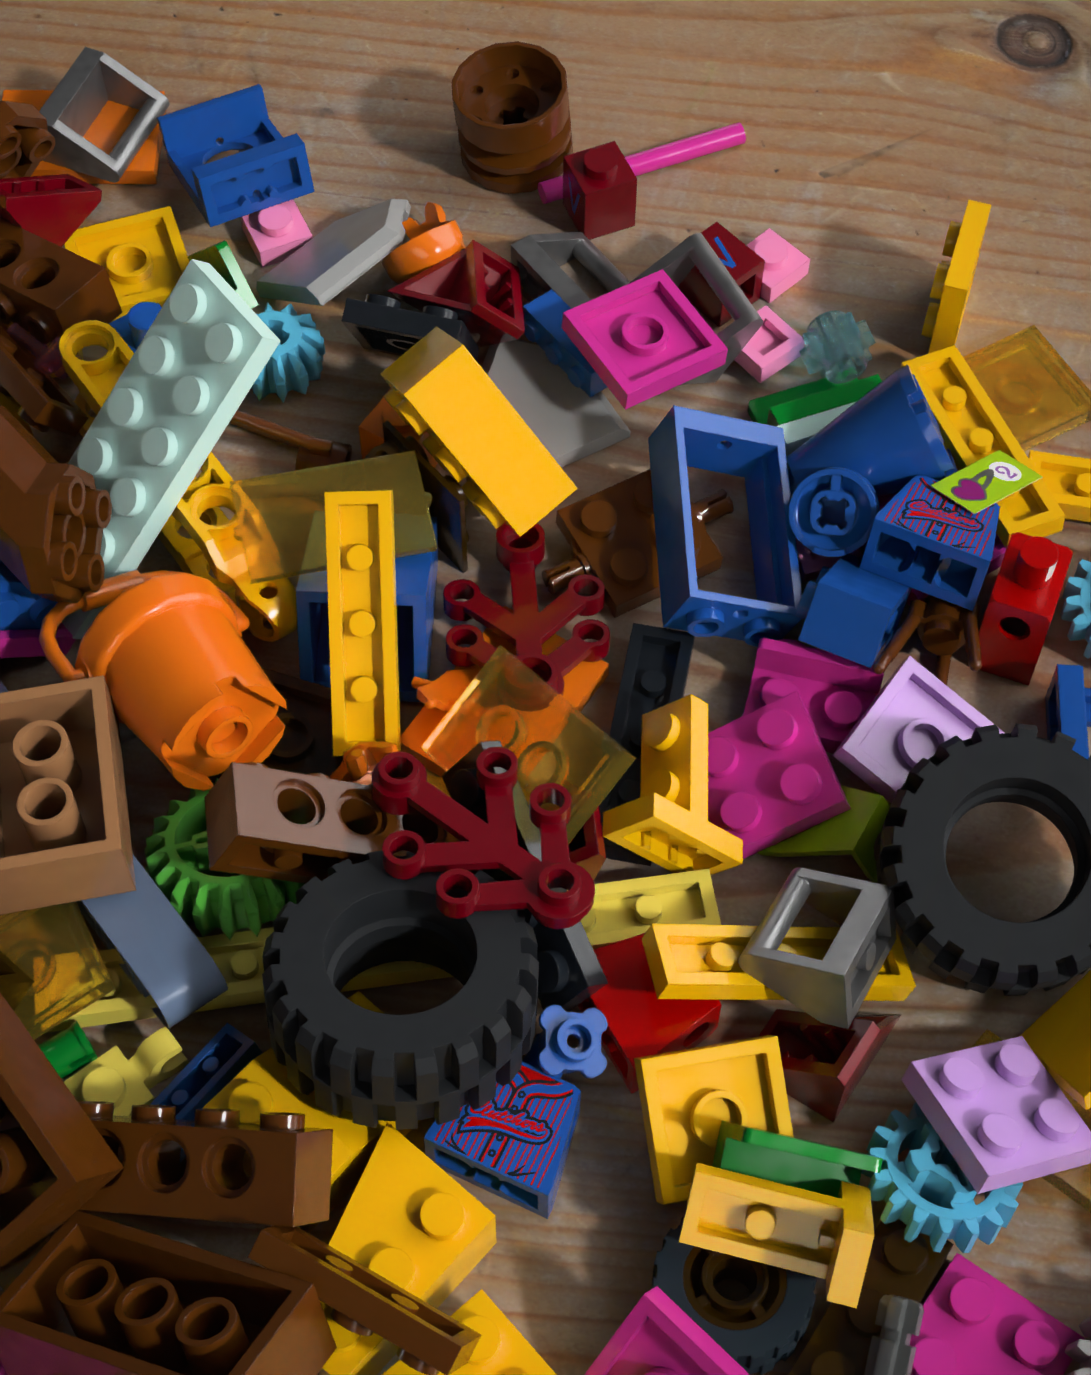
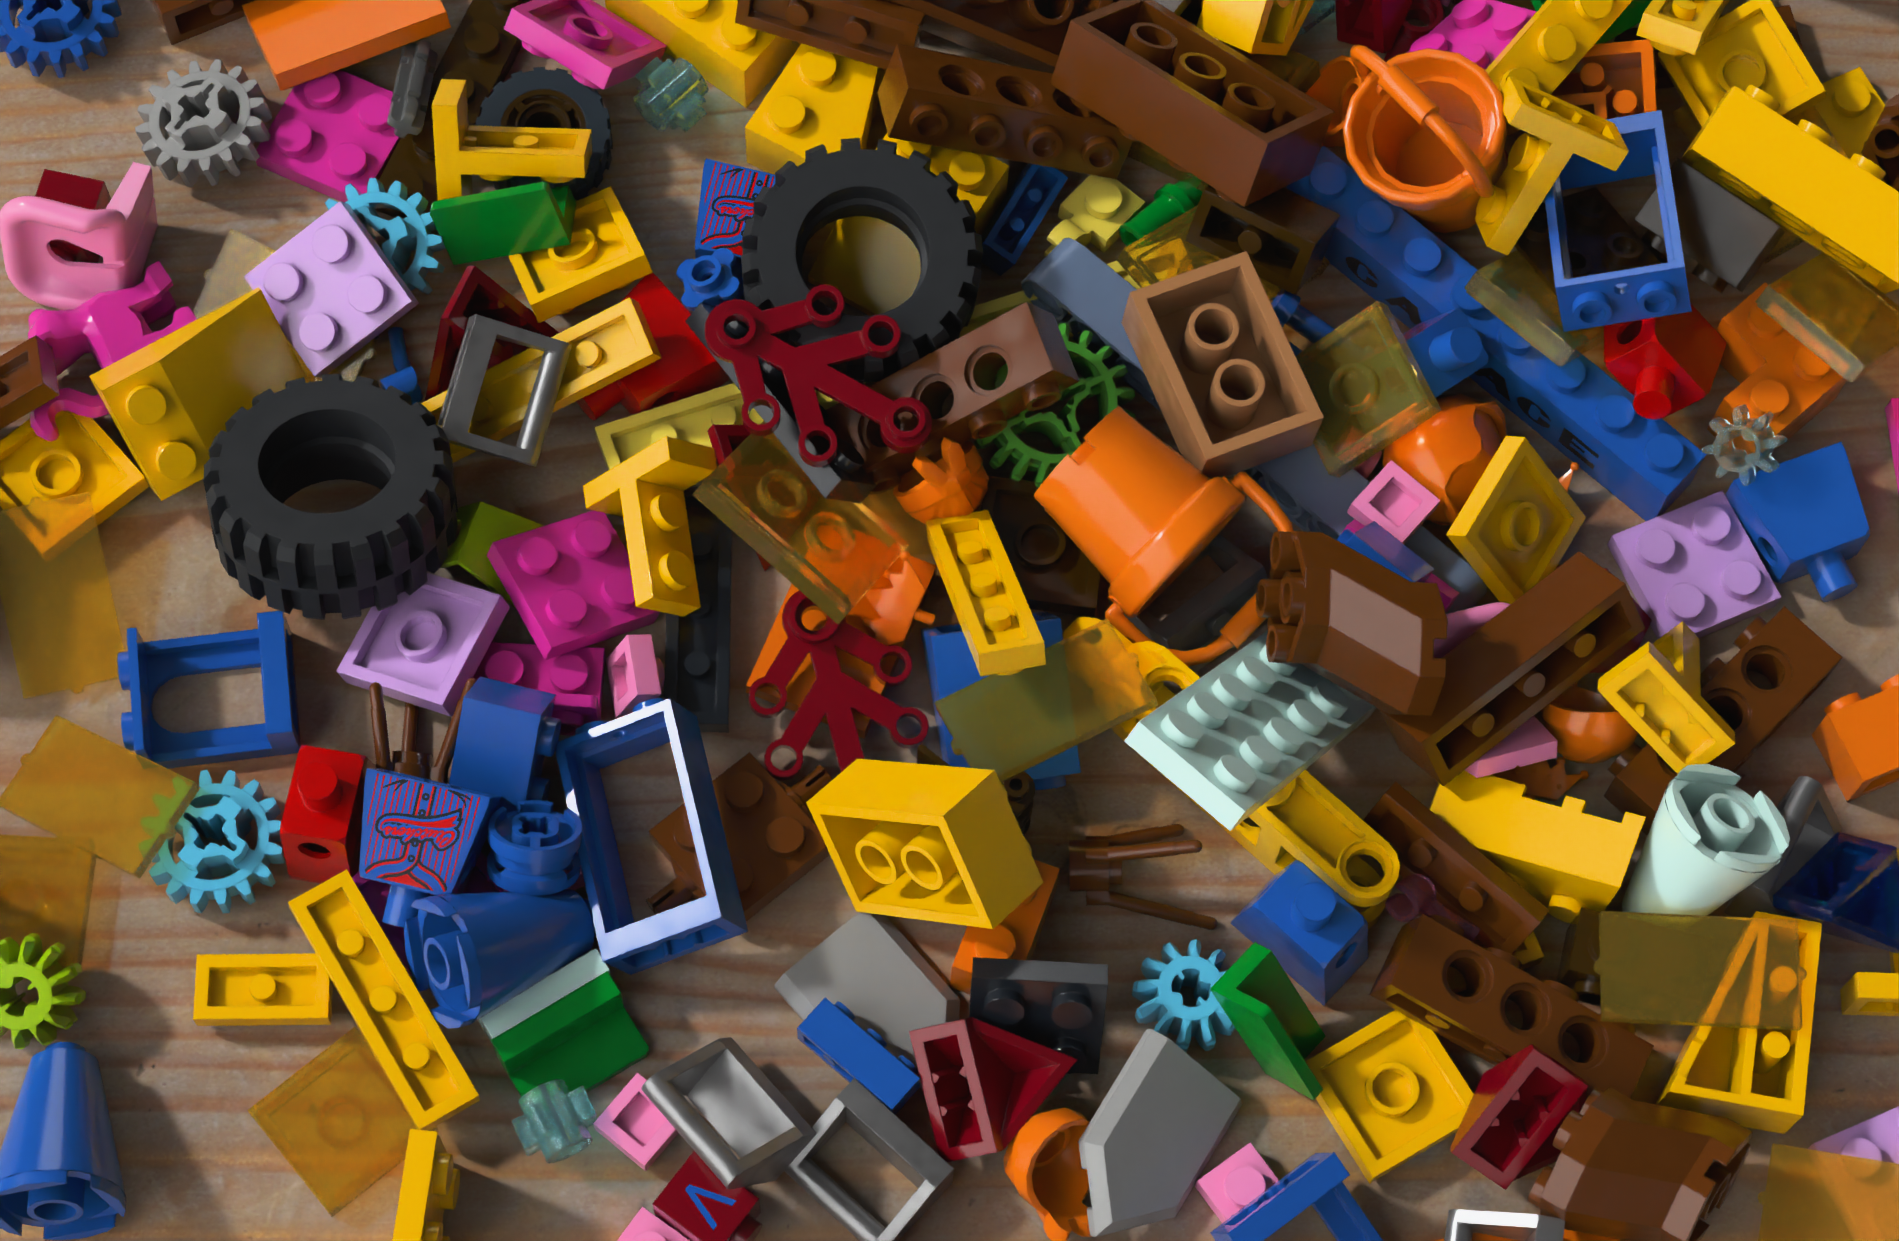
camera: 165 degrees right, 10 degrees up
(572, 1313) = (671, 94): none -> clear light blue gear
(644, 338) = (771, 1031): dark pink plate -> none
(715, 681) = (634, 673): none -> bright pink plate
(923, 1025) = (405, 376): none -> blue hand
(986, 481) = (374, 909): lime sticker -> none

